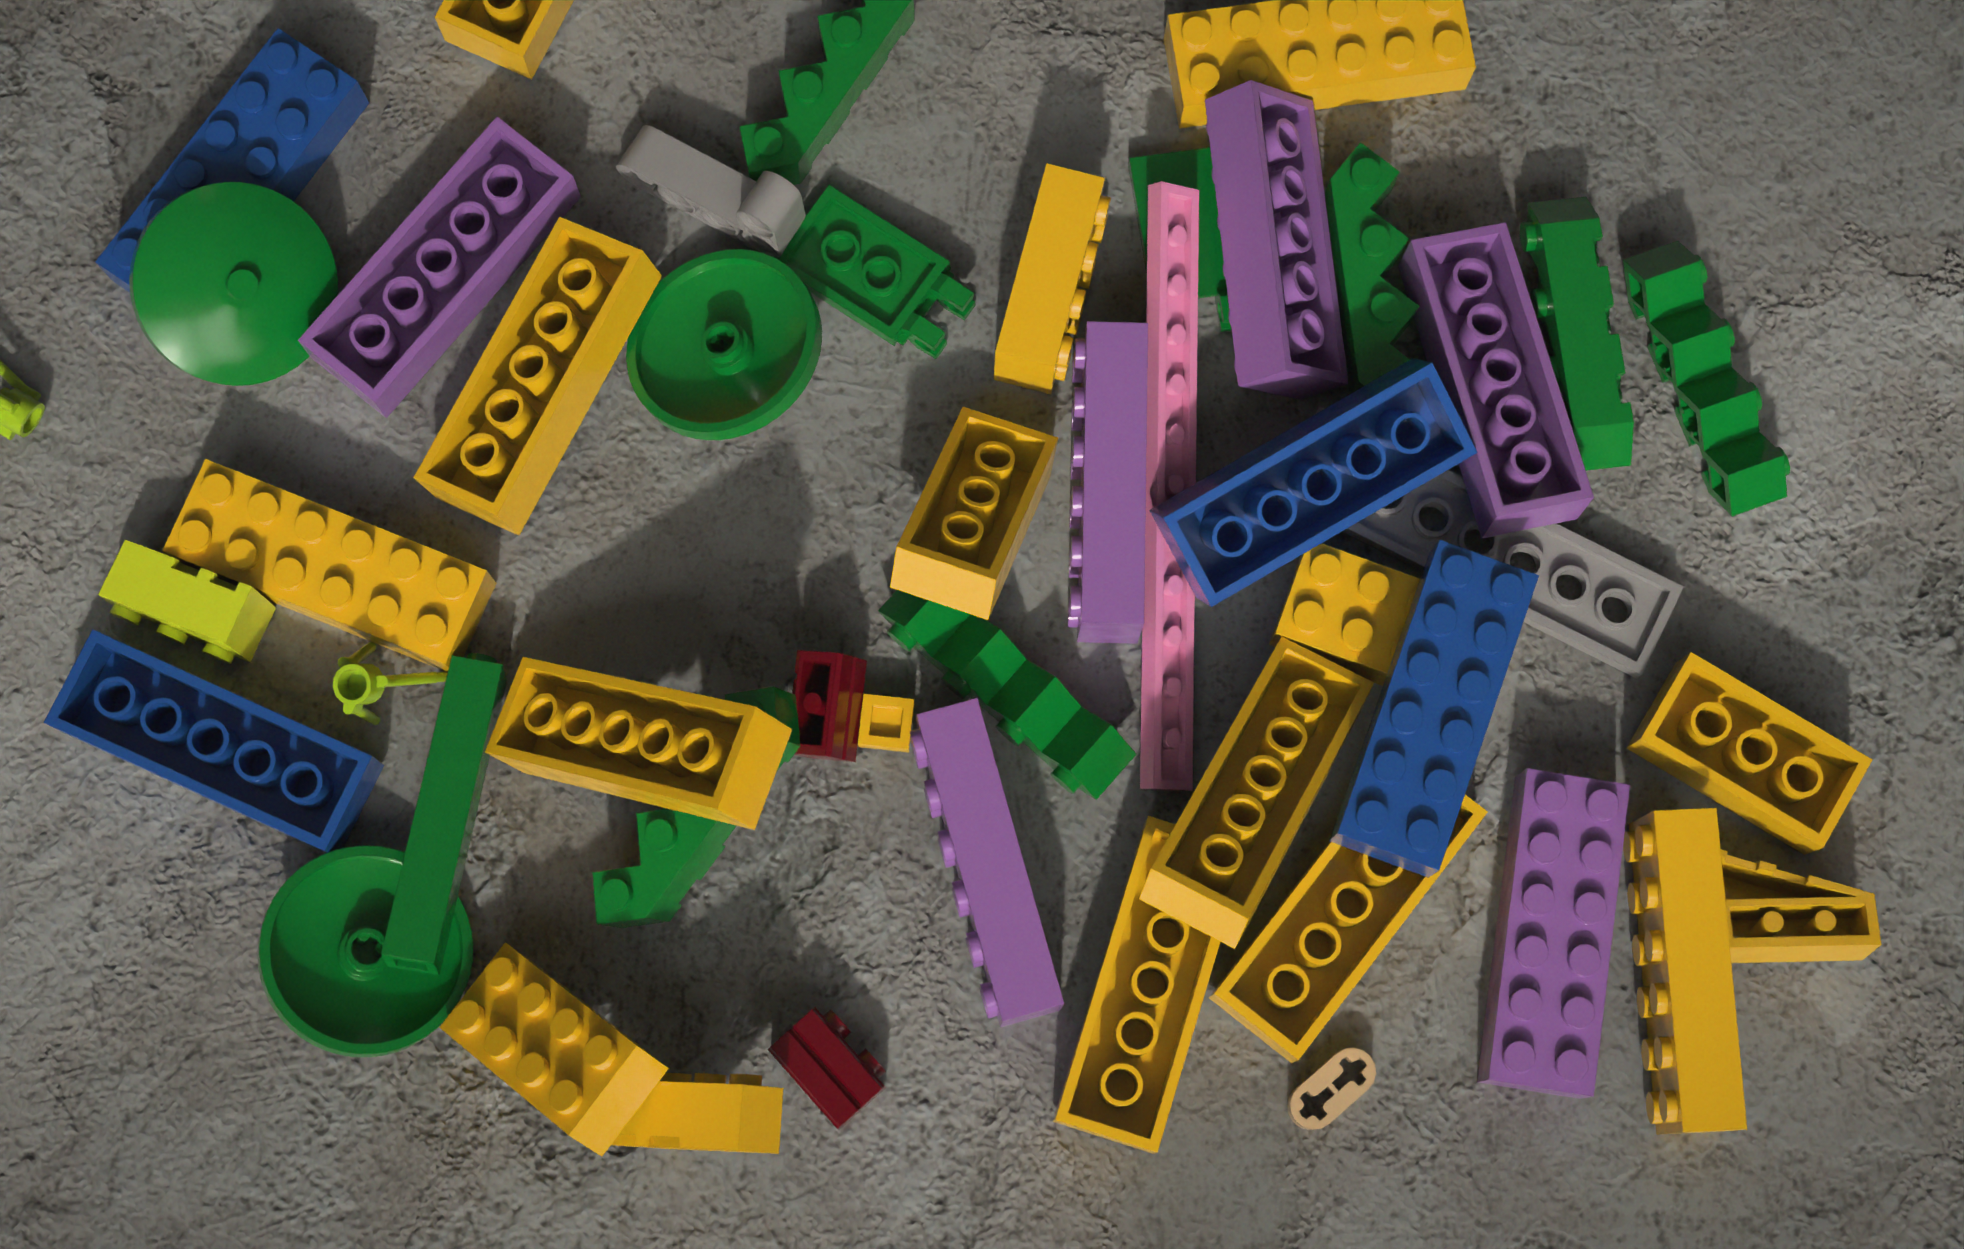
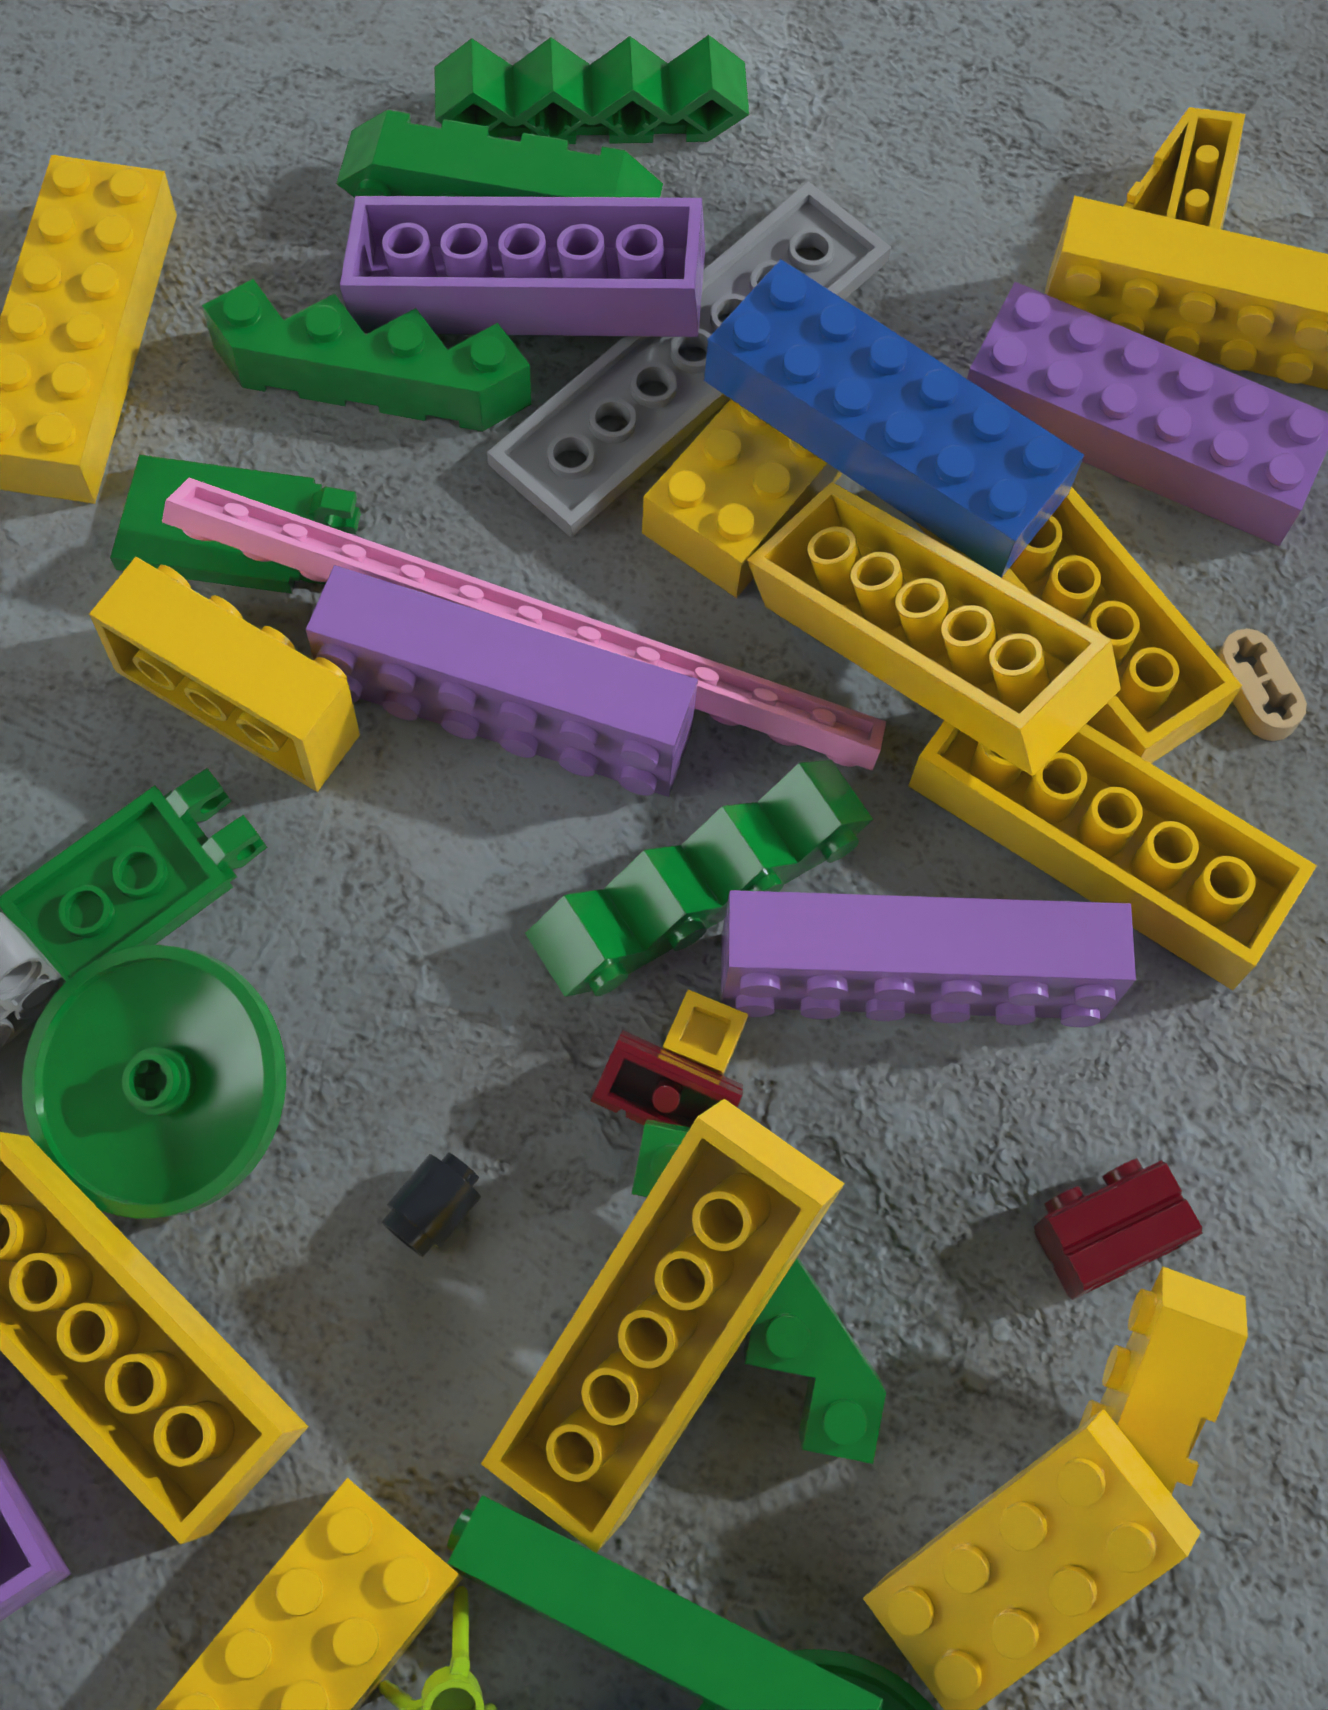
camera: 75 degrees left, 10 degrees down
(698, 567) = (432, 1203): none -> black brick
(973, 513) = (494, 834): yellow brick -> none
(1275, 241) = (277, 426): medium lavender brick -> none
(1313, 481) = (587, 462): blue brick -> none
(1749, 754) = (1004, 177): yellow brick -> none

